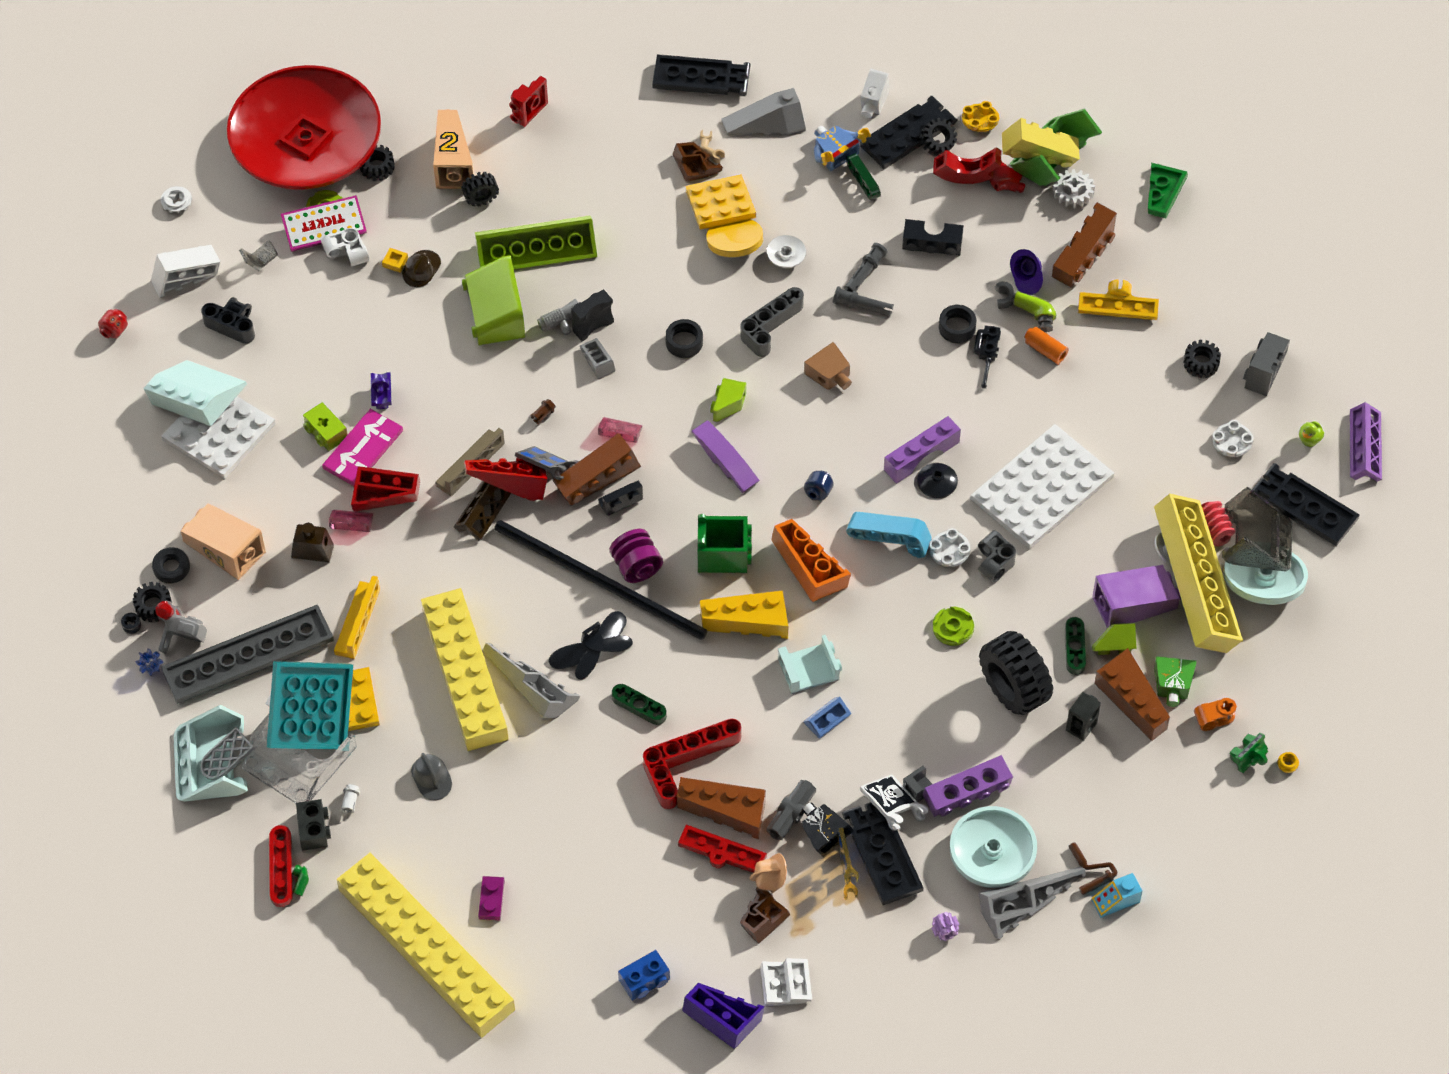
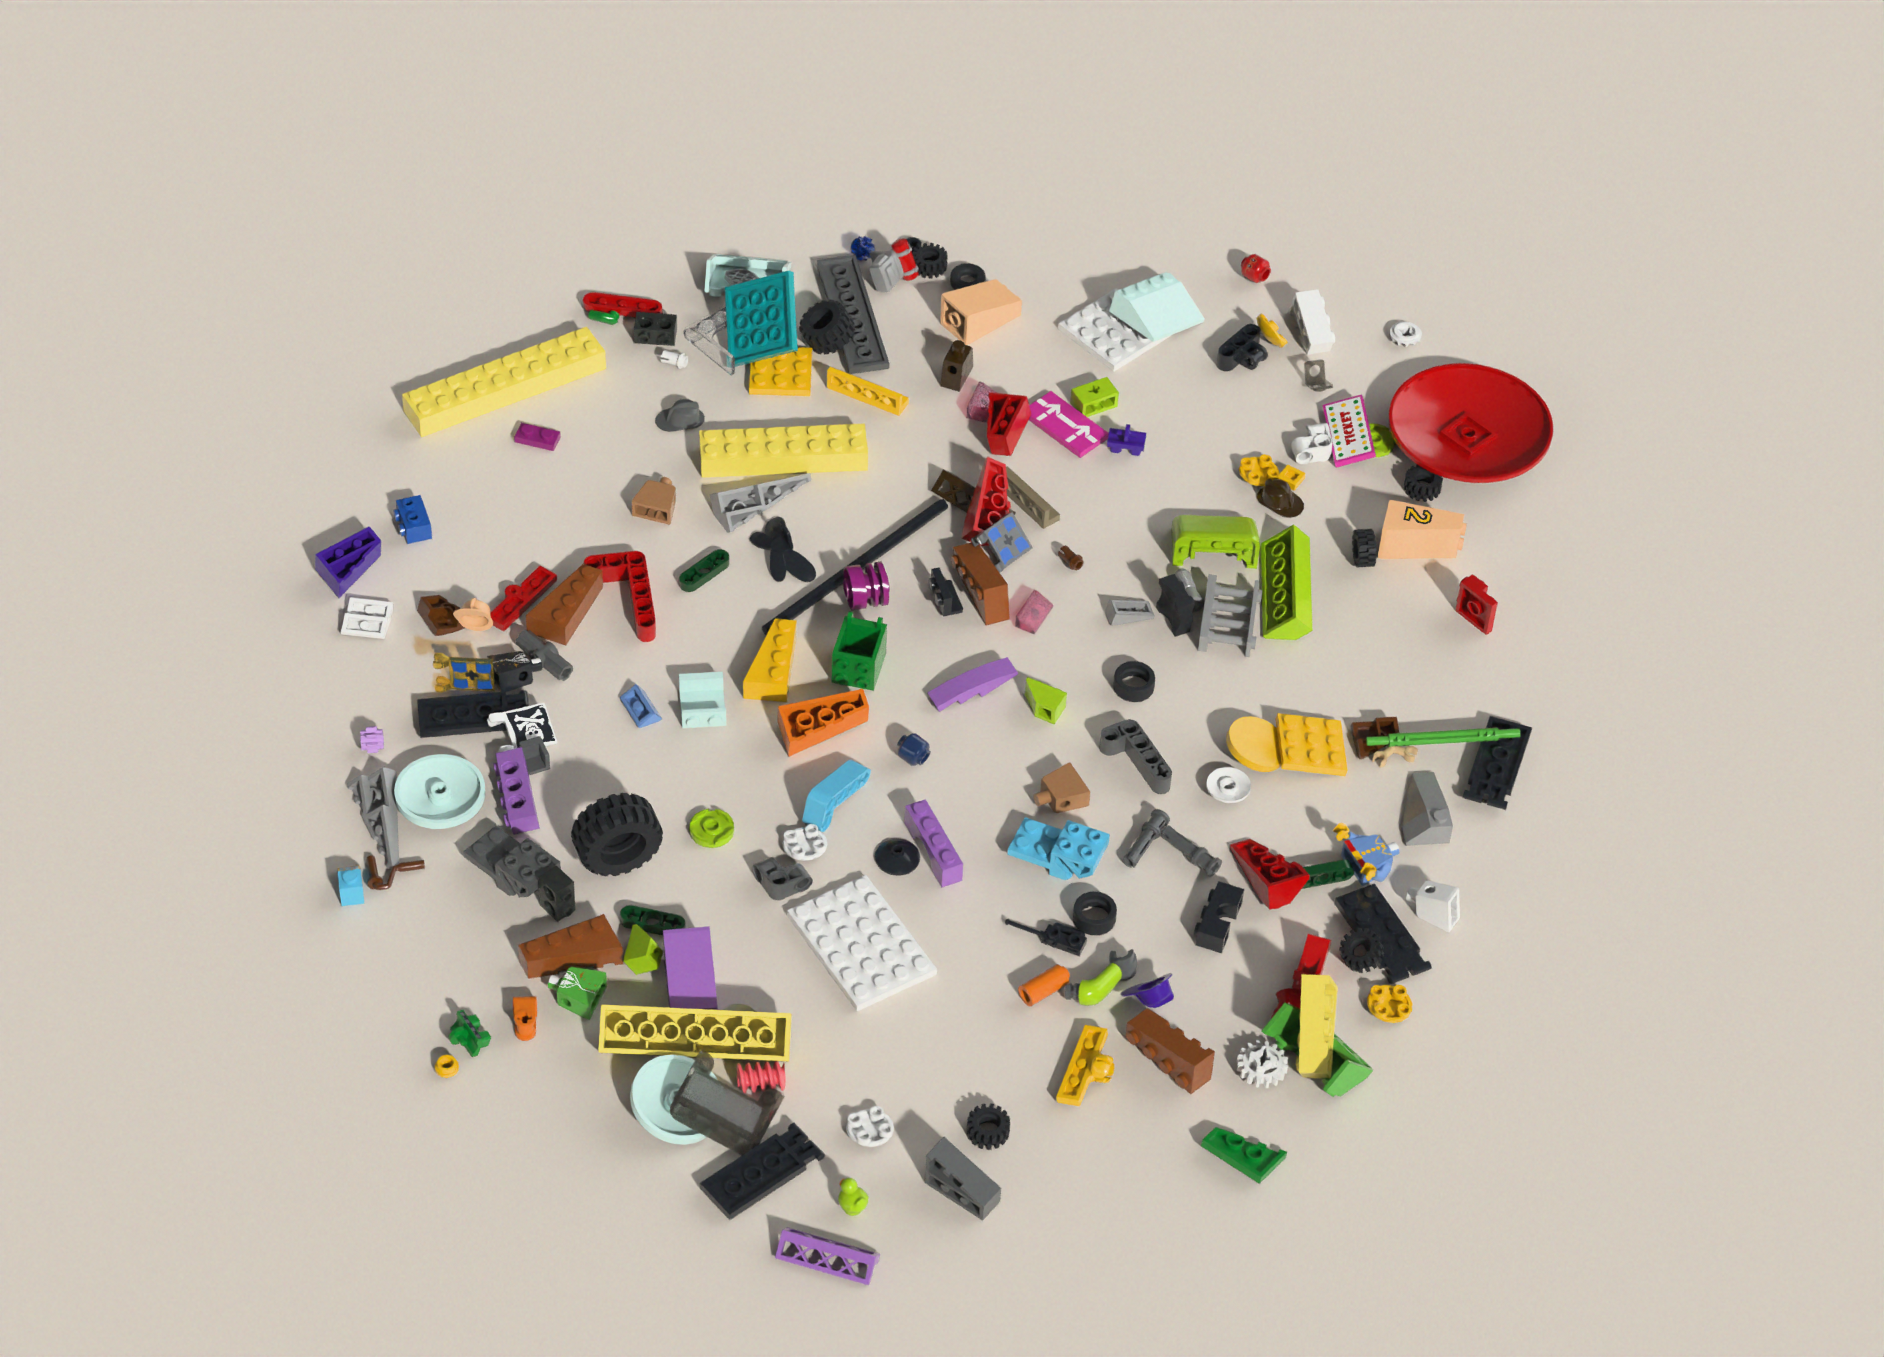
camera: 100 degrees right, 10 degrees down
(212, 292) = (1269, 331): none -> yellow dish
(282, 643) = (827, 327): none -> black tyre
(391, 285) = (1258, 469): none -> yellow dish
(560, 297) = (1212, 605): none -> light grey fence
(560, 763) = (655, 501): none -> medium nougat torso
(690, 109) = (1442, 737): none -> bright green axle
(877, 208) = (1269, 874): none -> red wedge
(900, 354) = (1064, 851): none -> medium azure piece
(1057, 762) = (509, 862): none -> dark grey piece

